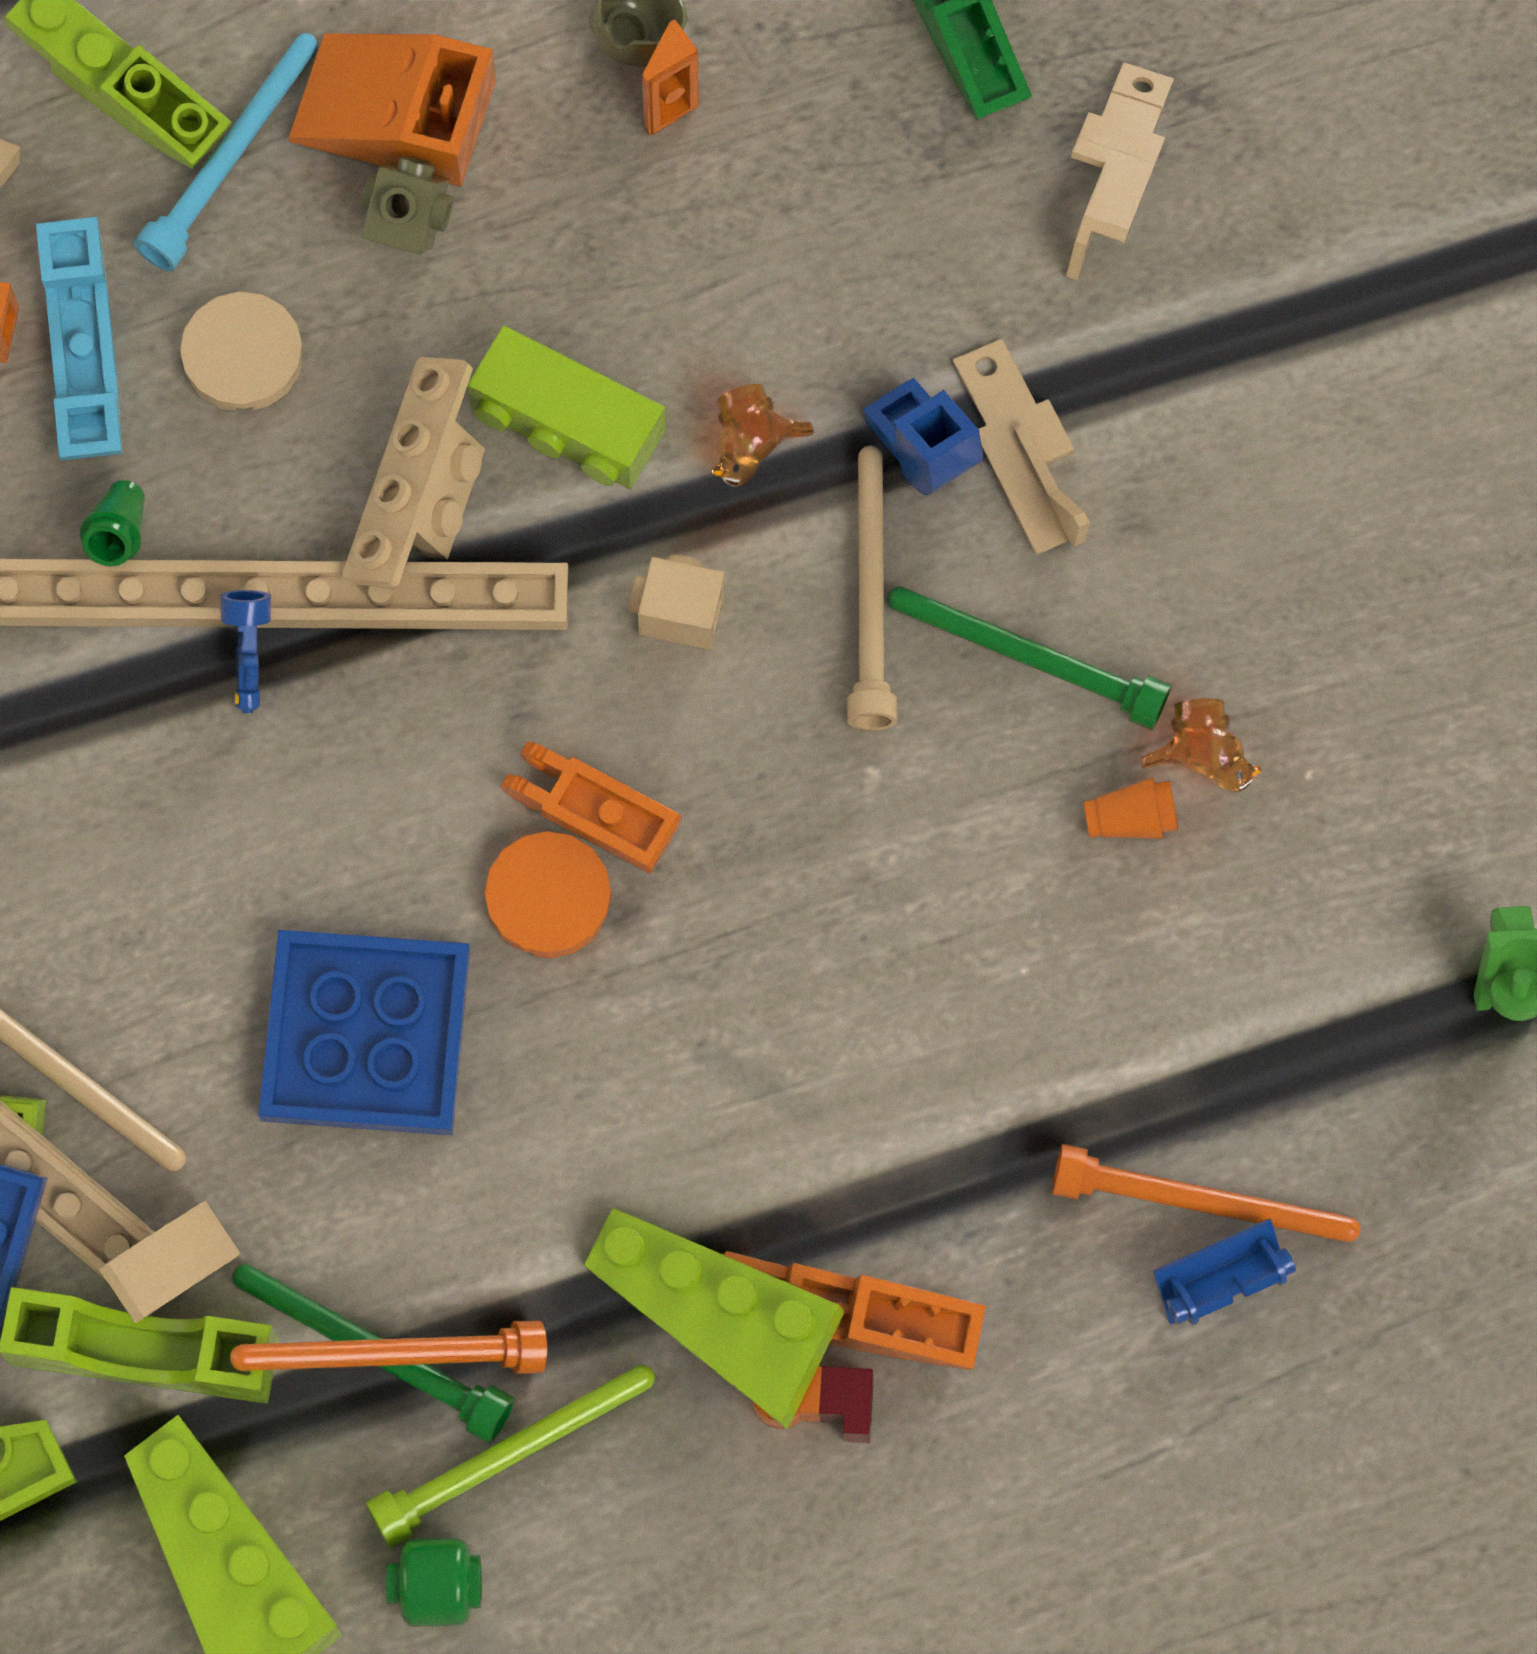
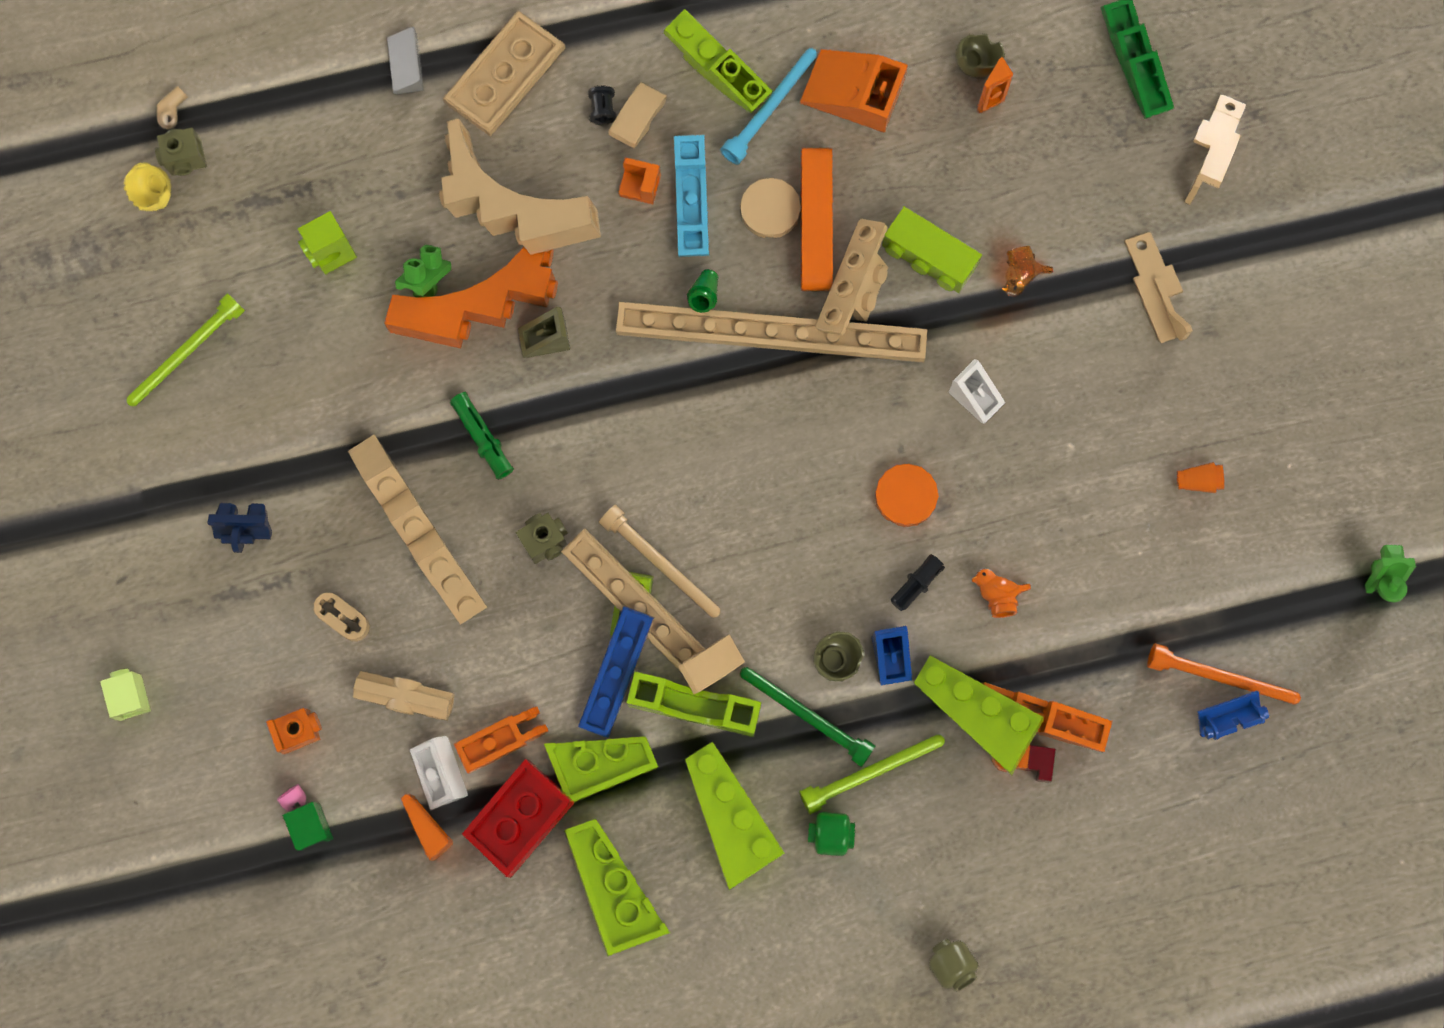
camera: 10 degrees right, 5 degrees up
(246, 611) = (767, 341): blue piece -> none
(334, 366) = (816, 219): none -> orange beam
(364, 1032) = (812, 557): blue plate -> none
(388, 216) = (849, 147): olive brick -> none
(426, 1224) = (838, 656): none -> olive hair
(518, 1347) = (879, 720): orange piece -> none
(536, 1213) = (892, 655): none -> blue slope
(580, 1065) = (917, 582): none -> black axle
(596, 807) = (933, 453): orange hinge -> none
(673, 678) = (976, 392): none -> white slope
(679, 601) = (982, 347): tan brick -> none
(744, 1071) = (999, 593): none -> orange animal
(871, 703) = (1074, 410): tan piece -> none
(925, 435) = (1112, 280): blue brick -> none
(1138, 697) = (1208, 420): green piece -> none
(1205, 745) = (1240, 448): clear orange animal -> none

